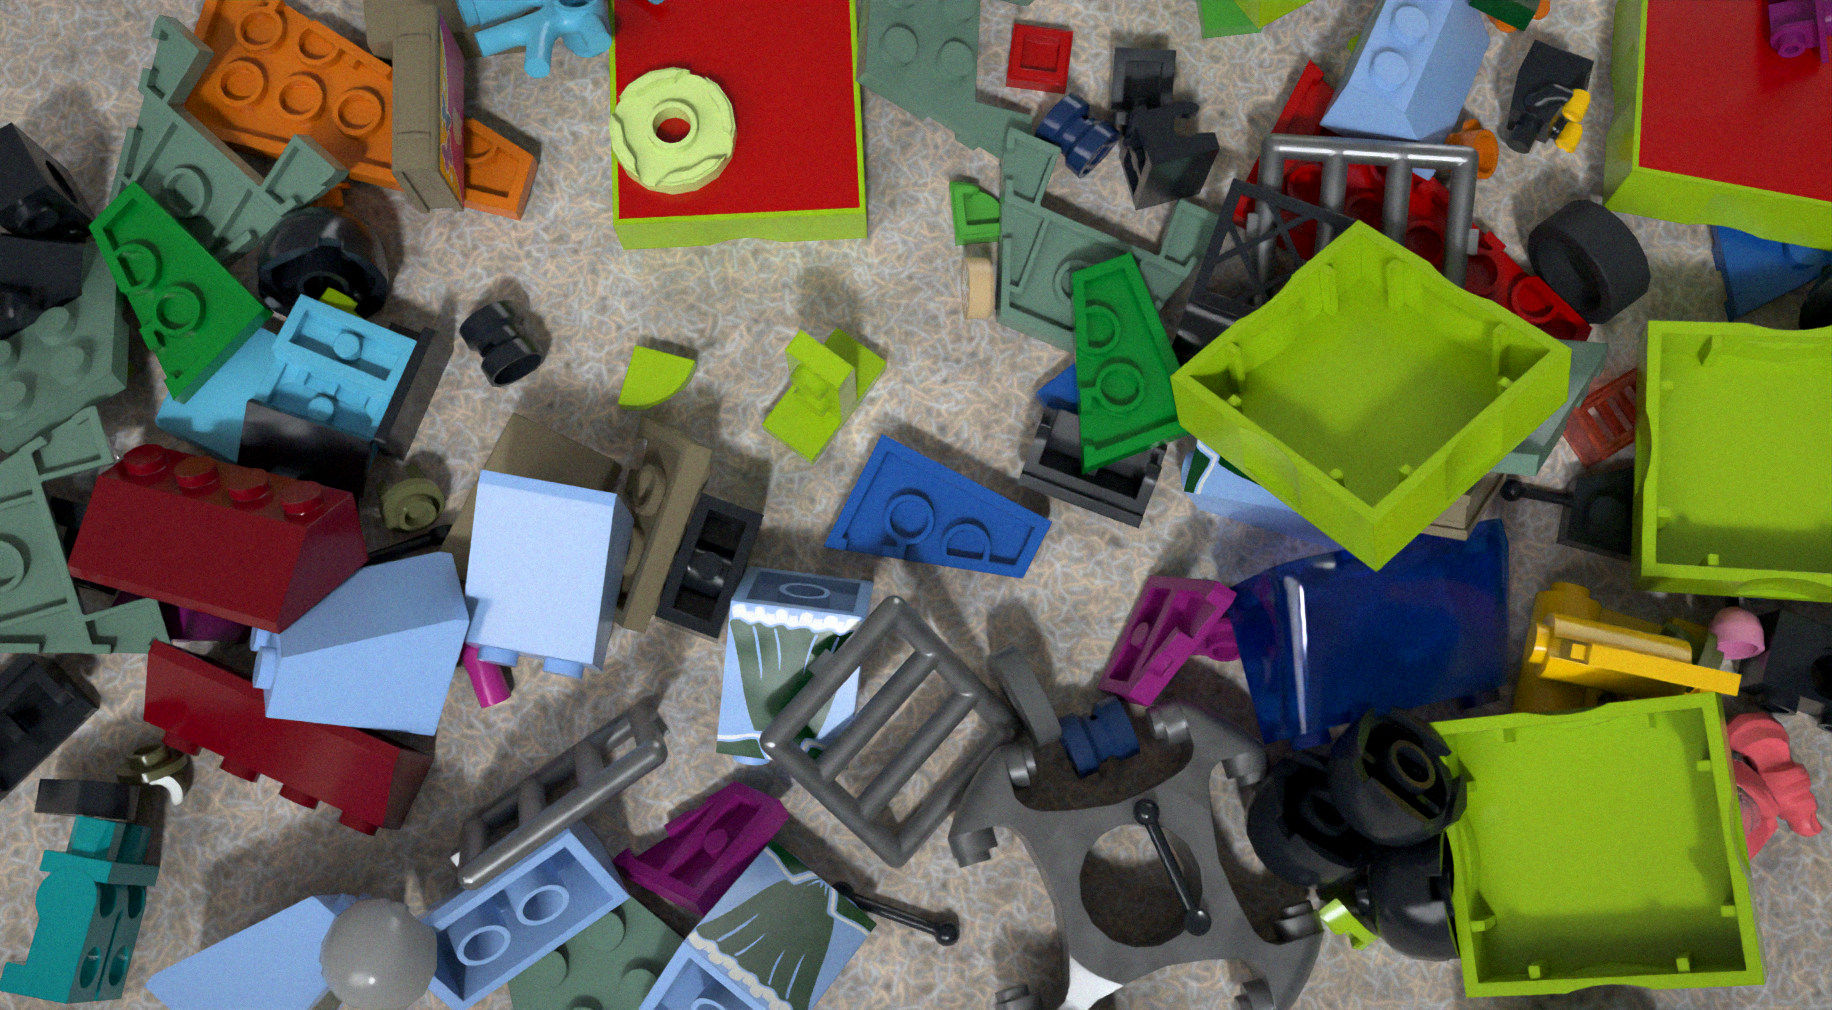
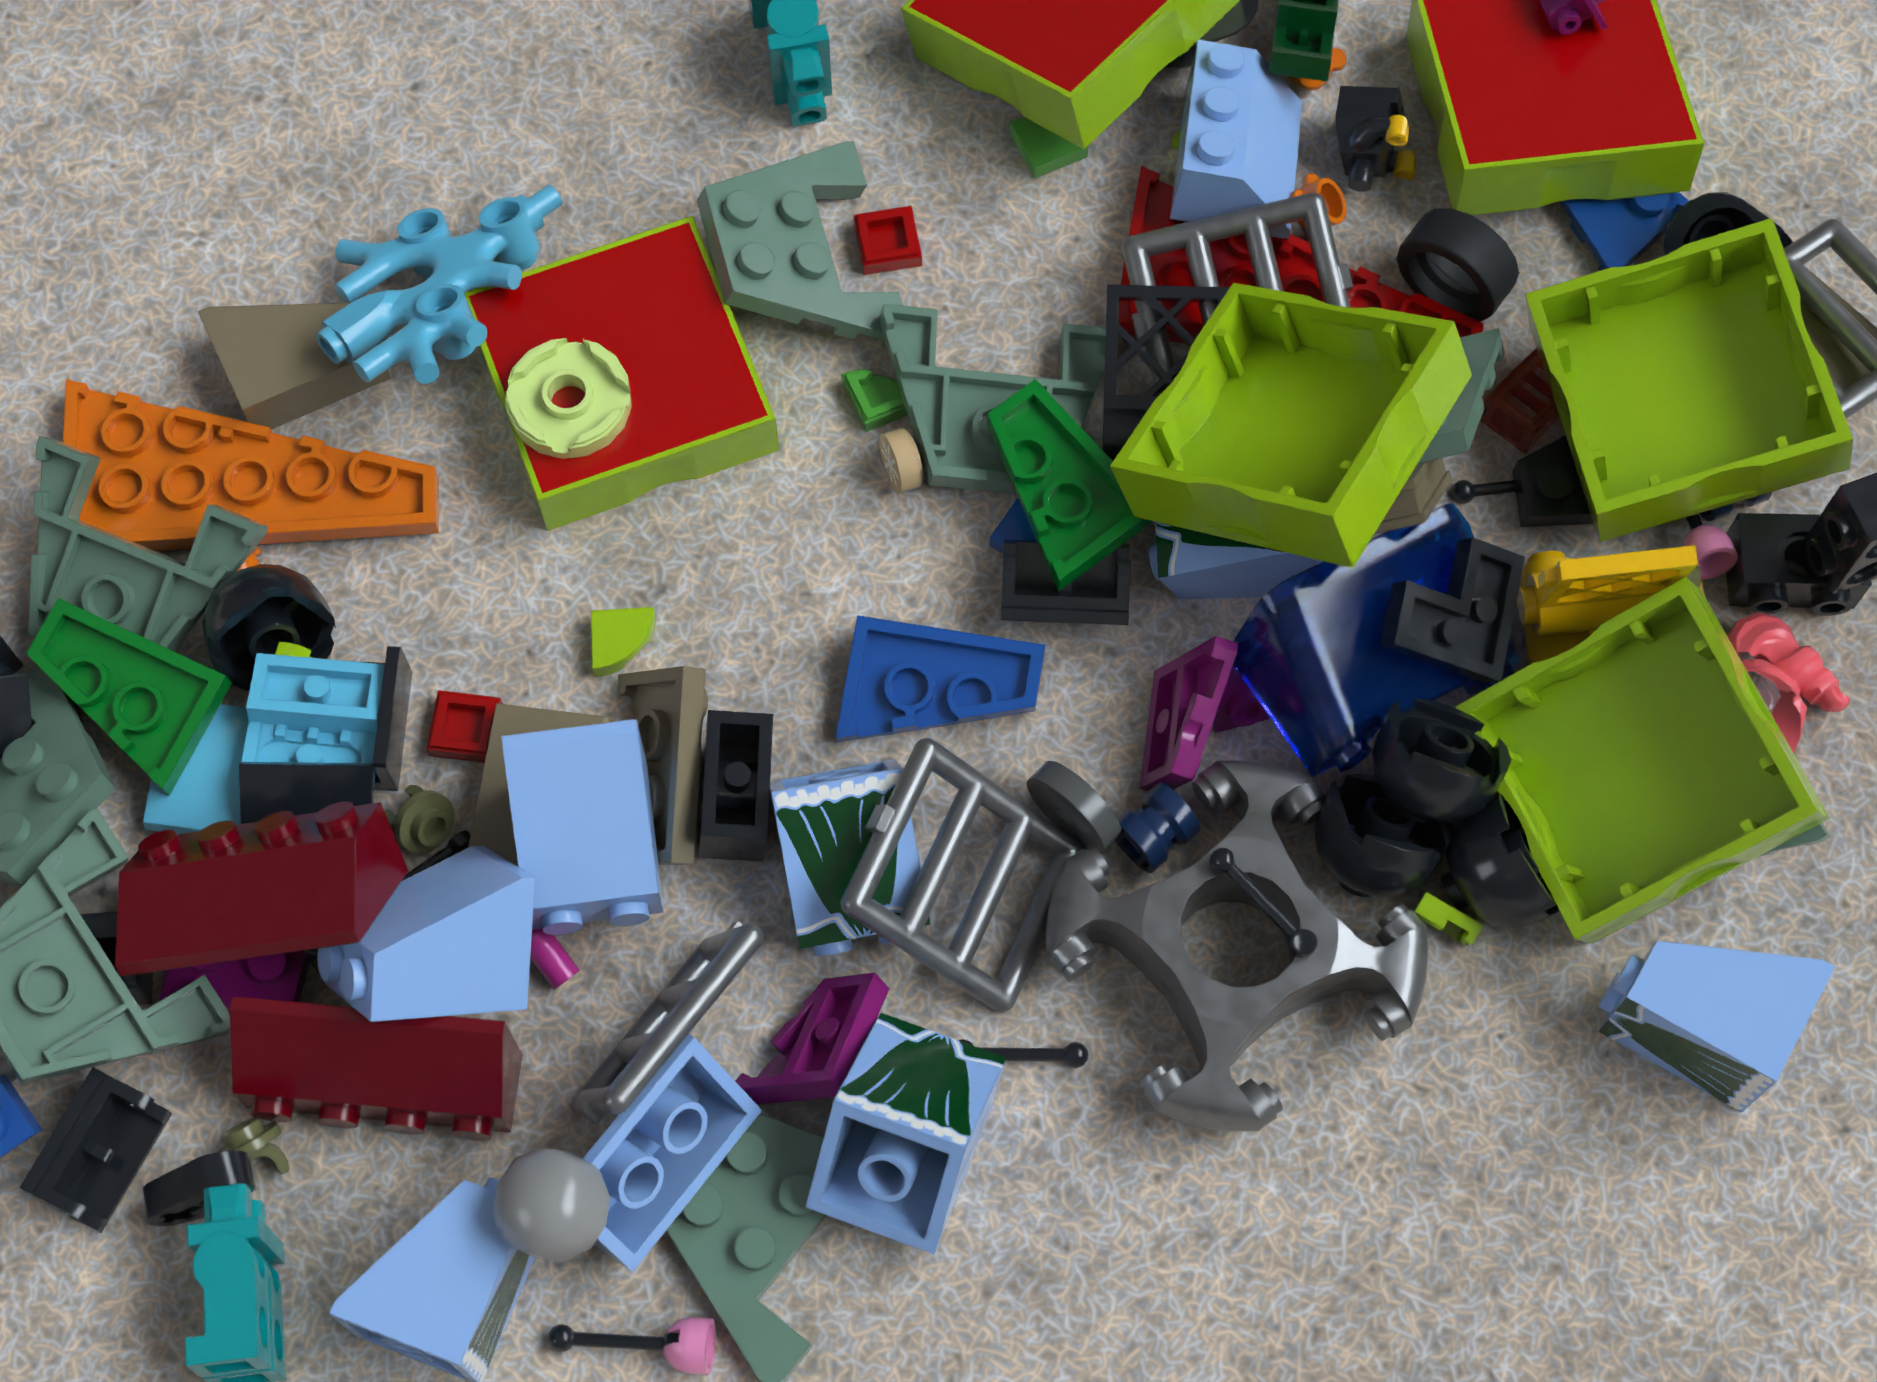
camera: 15 degrees left, 10 degrees down
(427, 108) = (327, 446): dark tan piece -> none
(479, 418) = (461, 726): none -> red tile
(502, 343) = (462, 647): black wheel -> none
(824, 391) = (789, 593): lime bracket -> none
(1081, 138) = (955, 297): dark blue wheel -> none
(1138, 79) = (994, 238): black bracket -> none
(1159, 161) = (1036, 292): black hinge -> none
(1473, 653) = (1467, 626): none -> black plate

